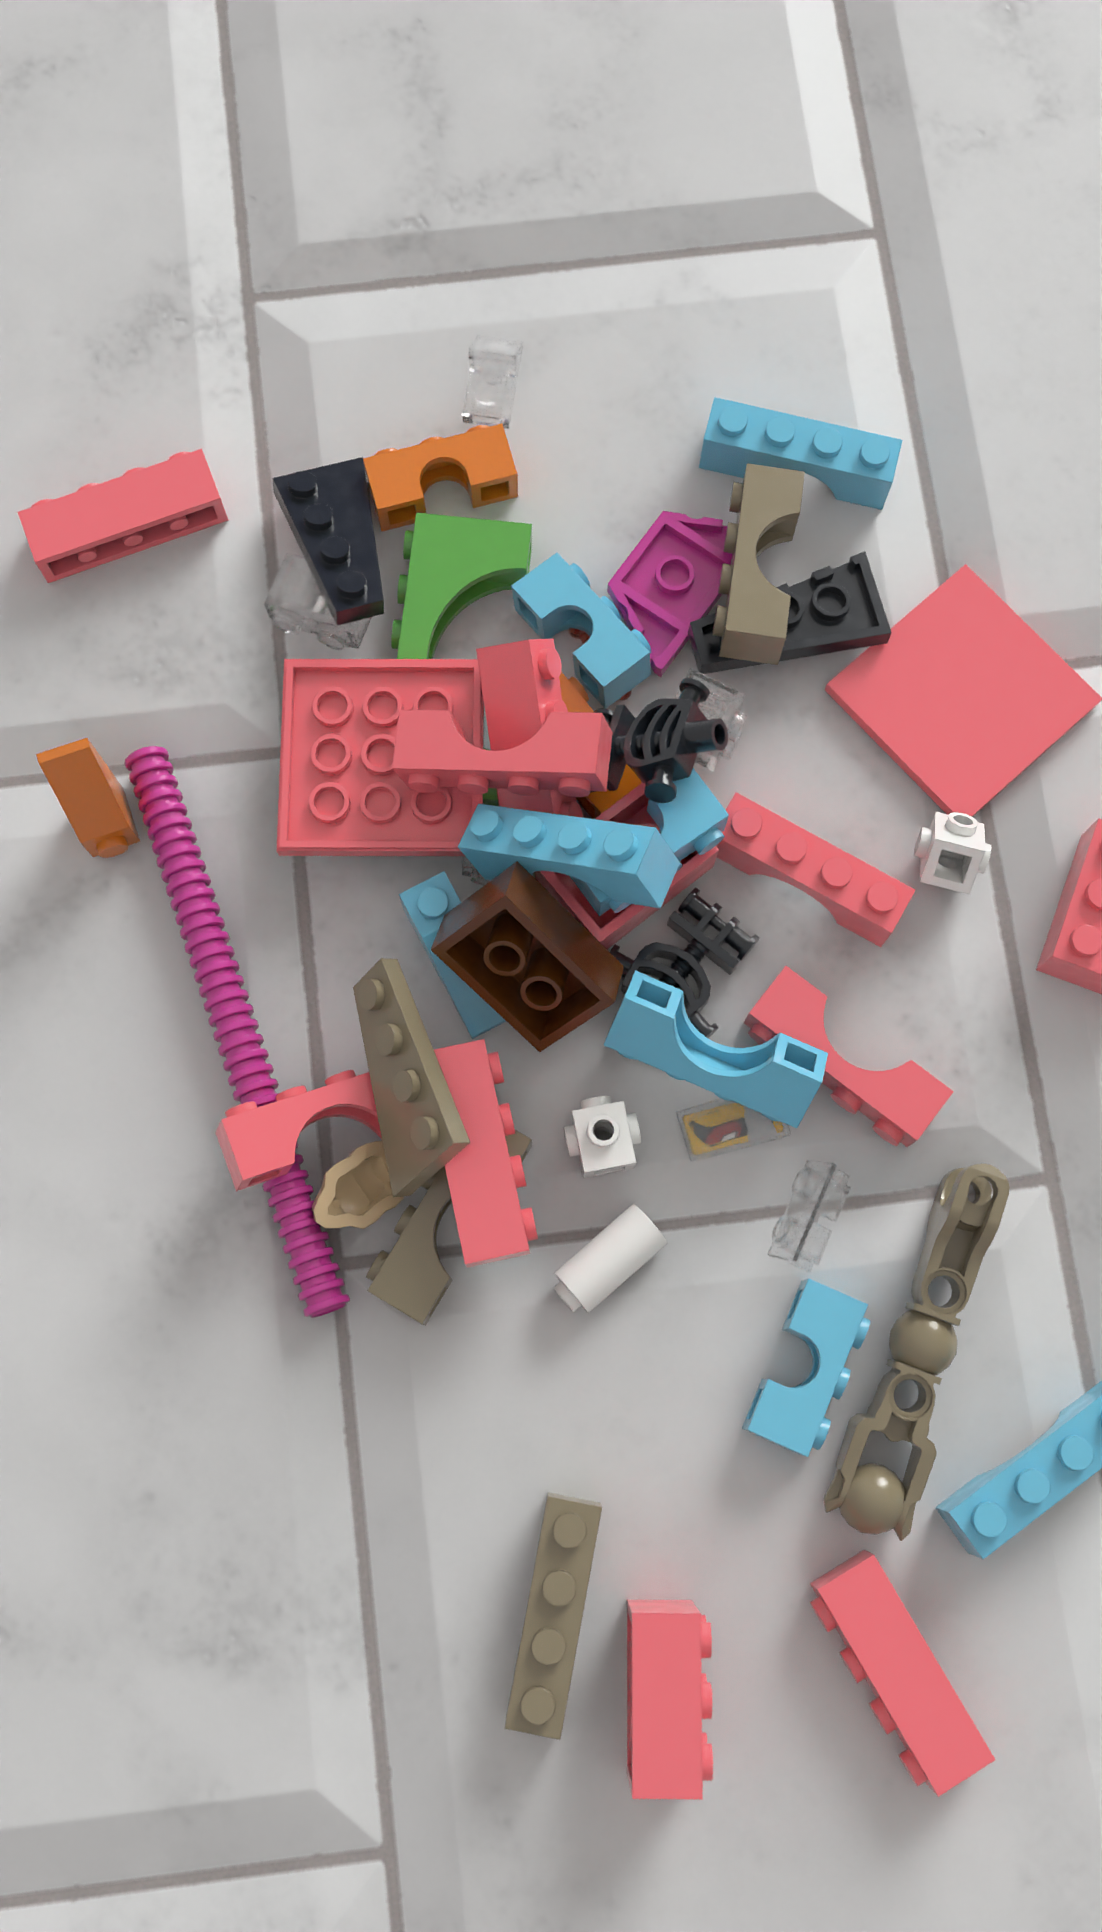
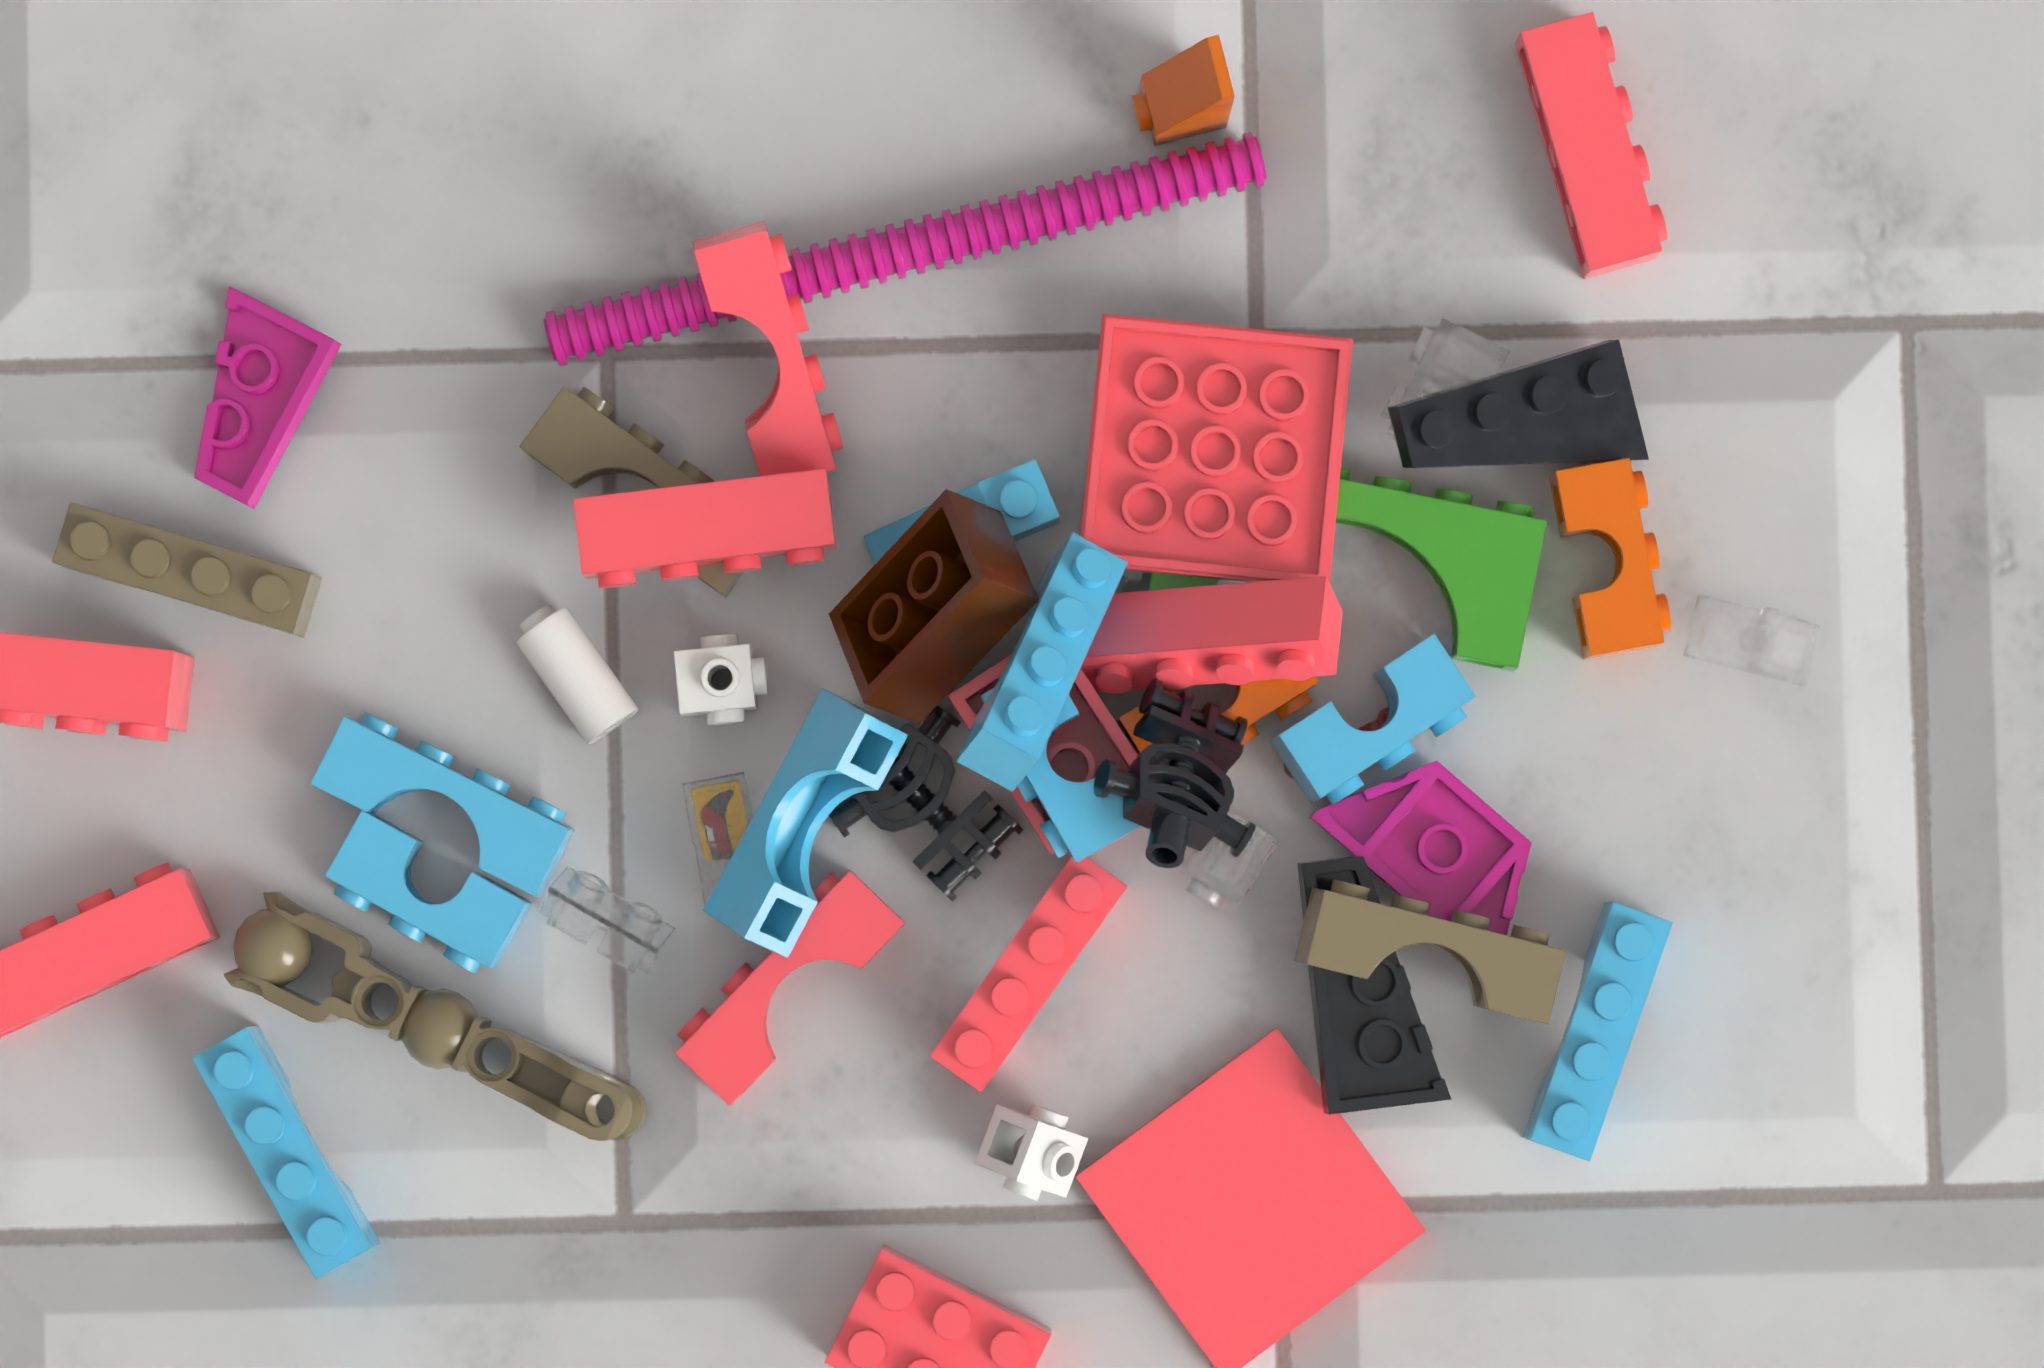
camera: 95 degrees right, 10 degrees up
(355, 1190) = (690, 392): tan arm -> none
(394, 1563) = (260, 395): none -> dark pink wing
(409, 1089) = (785, 450): dark tan wing -> none
(564, 756) = (1169, 668): coral arch -> none
(707, 1426) = (514, 839): none -> medium azure arch

